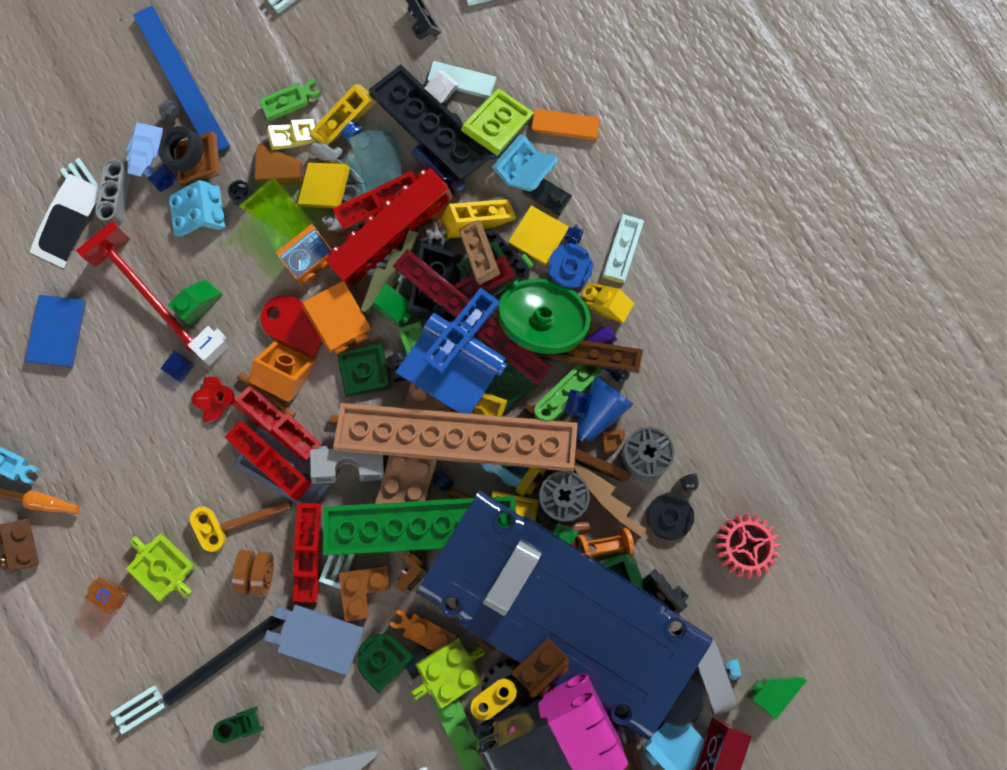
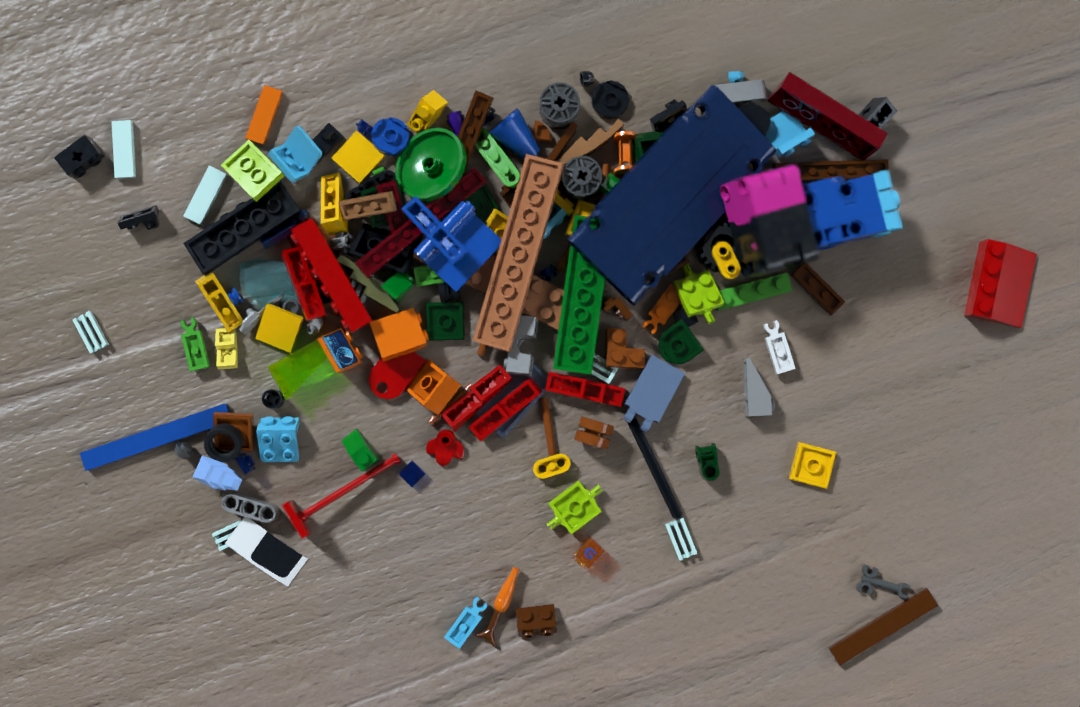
camera: 80 degrees left, 10 degrees up
(55, 331) = (362, 570): blue tile -> none
(209, 345) = (400, 443): white brick -> none
(277, 165) = (253, 365): dark orange slope -> none
(441, 86) = (211, 211): white brick -> none
(512, 578) = (640, 226): light grey beam -> none
(541, 667) = (710, 218): reddish brown bracket -> none
(578, 403) = (510, 150): clear blue plate -> none
(623, 249) = (383, 90): light aqua tile -> none
(750, 556) = (652, 43): coral gear -> none
(775, 694) = (759, 49): green slope -> none

